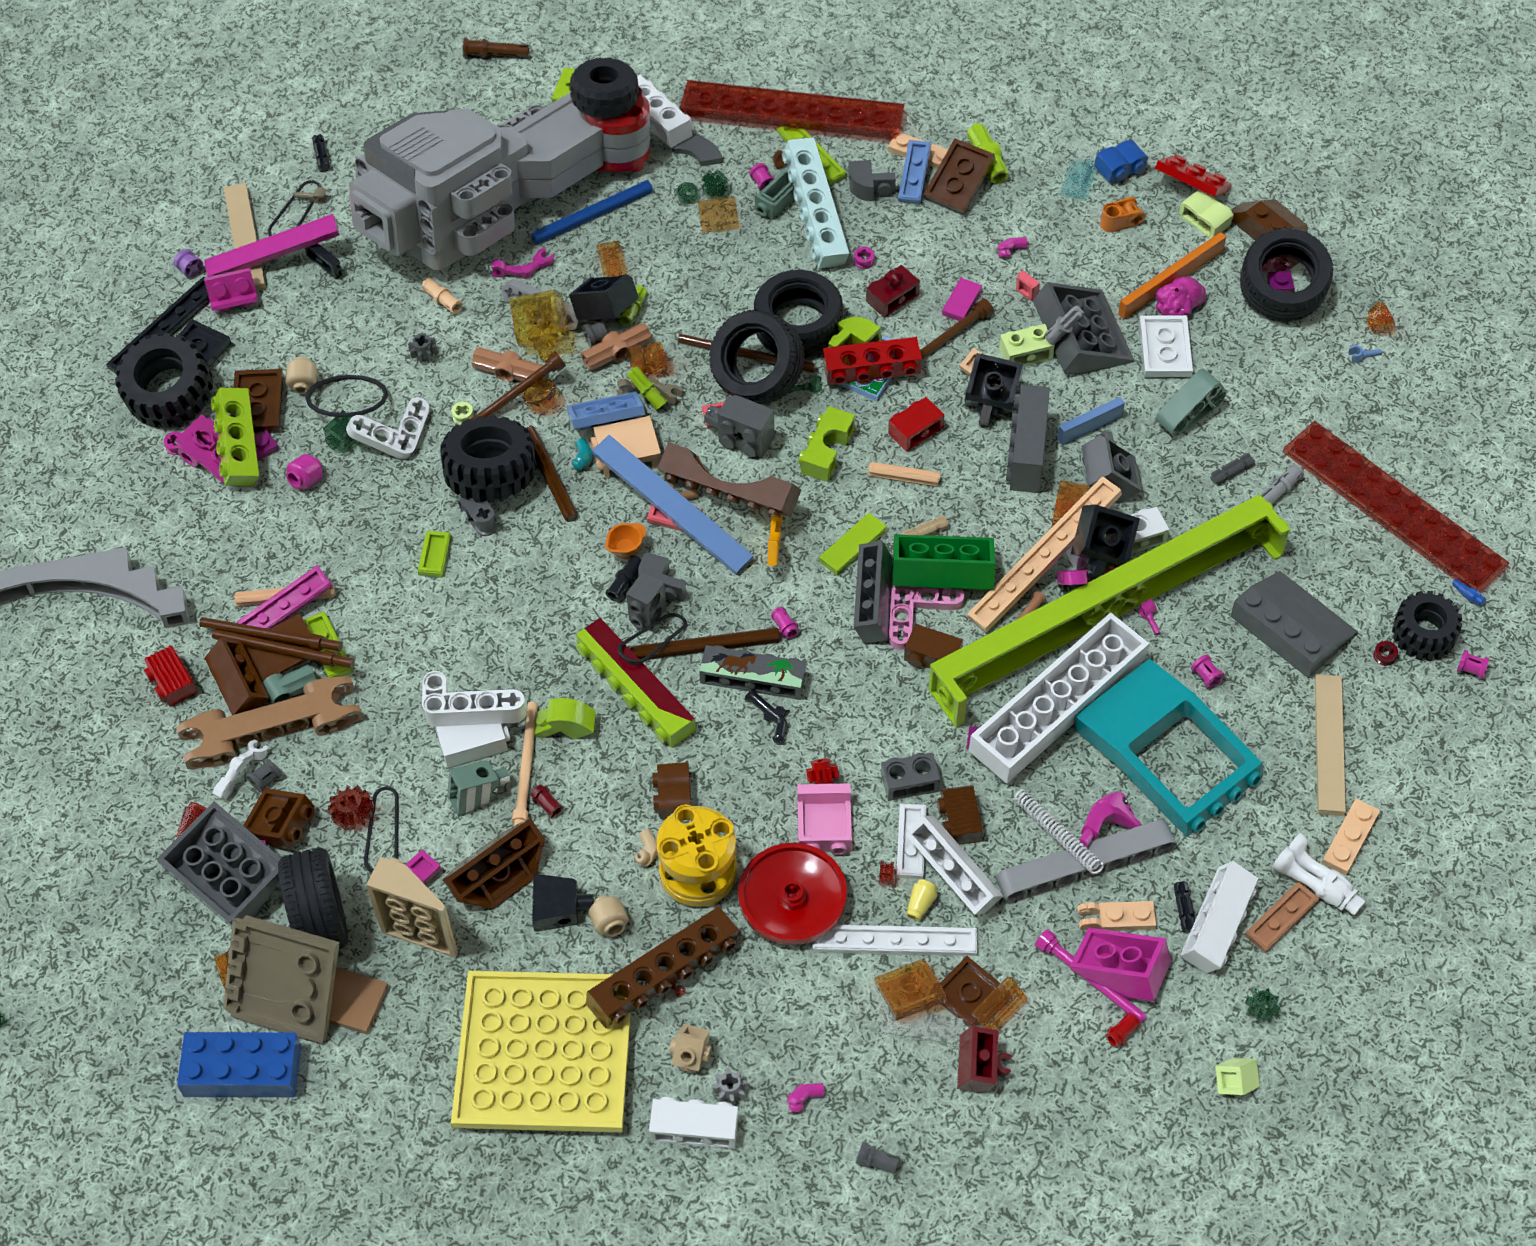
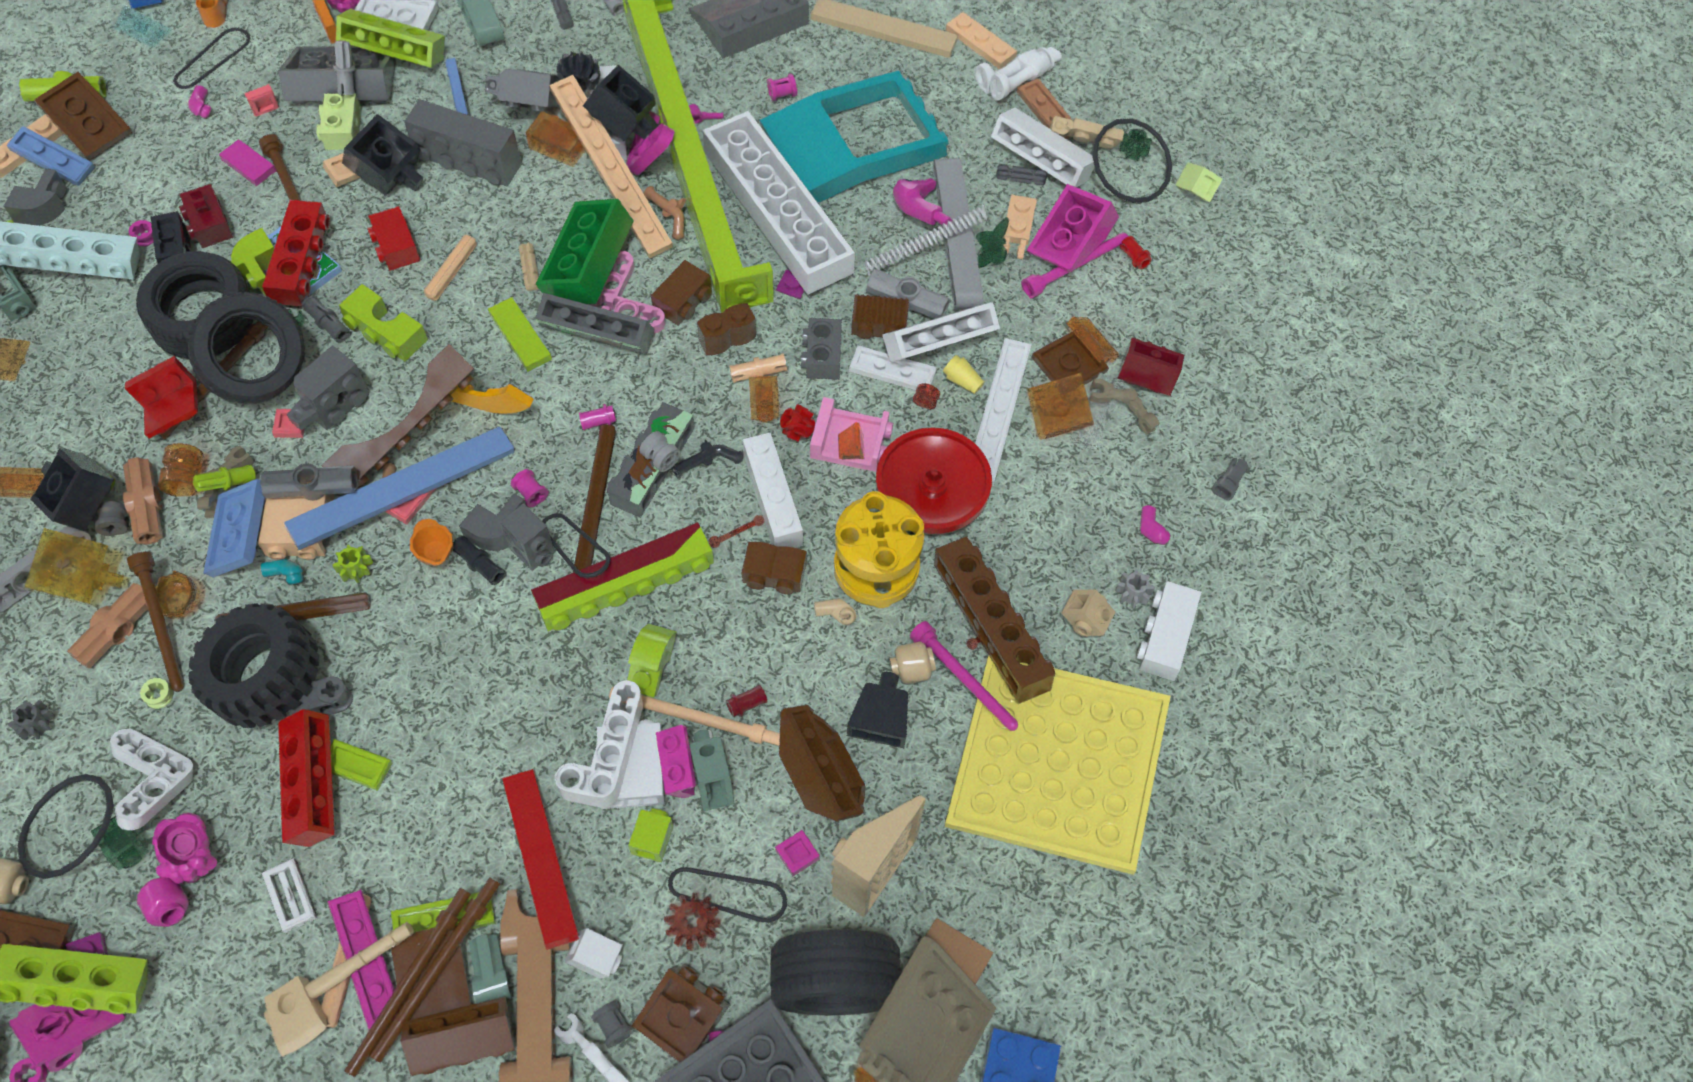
camera: 80 degrees left, 5 degrees up
(244, 574) = (294, 1007): none -> tan piece
(312, 747) = (594, 954): none -> white brick
(328, 548) = (298, 919): none -> white tile
(342, 468) = (183, 849): none -> dark pink hair
(376, 689) = (540, 860): none -> red tile
(411, 523) = (305, 778): none -> red brick
(415, 761) = (651, 834): none -> lime brick
(482, 750) = (676, 762): none -> dark pink bracket
(598, 495) = (352, 563): none -> lime gear
(637, 923) = (927, 634): none -> dark pink piece
(649, 439) = (294, 482): none -> dark grey piece
(691, 743) = (715, 541): none -> clear red hinge
(700, 331) = (166, 395): none -> red bracket
(700, 593) = (529, 487): none -> dark pink bush
(745, 770) = (772, 491): none -> white brick
(750, 666) = (662, 453): none -> light grey wheel
(814, 822) = (851, 443): none -> clear orange slope
(820, 404) = (325, 318): none -> dark grey pin
(841, 741) = (764, 398): none -> clear orange brick
(853, 276) = (169, 235): none -> black brick
(874, 730) = (758, 367): none -> light nougat pin
(905, 695) = (726, 329): none -> reddish brown brick
(938, 1027) = (1146, 421): none -> dark tan piece
(994, 845) = (919, 298): none -> light grey piece
(1068, 229) = (216, 66): none -> black piece
(1090, 892) = (992, 245): none -> clear green piece
(1127, 350) = (390, 38): none -> lime brick
(1135, 495) = (582, 67): none -> black gear
(1225, 1046) = (1102, 177): none -> black piece
(1255, 951) = (1086, 131): none -> tan hinge

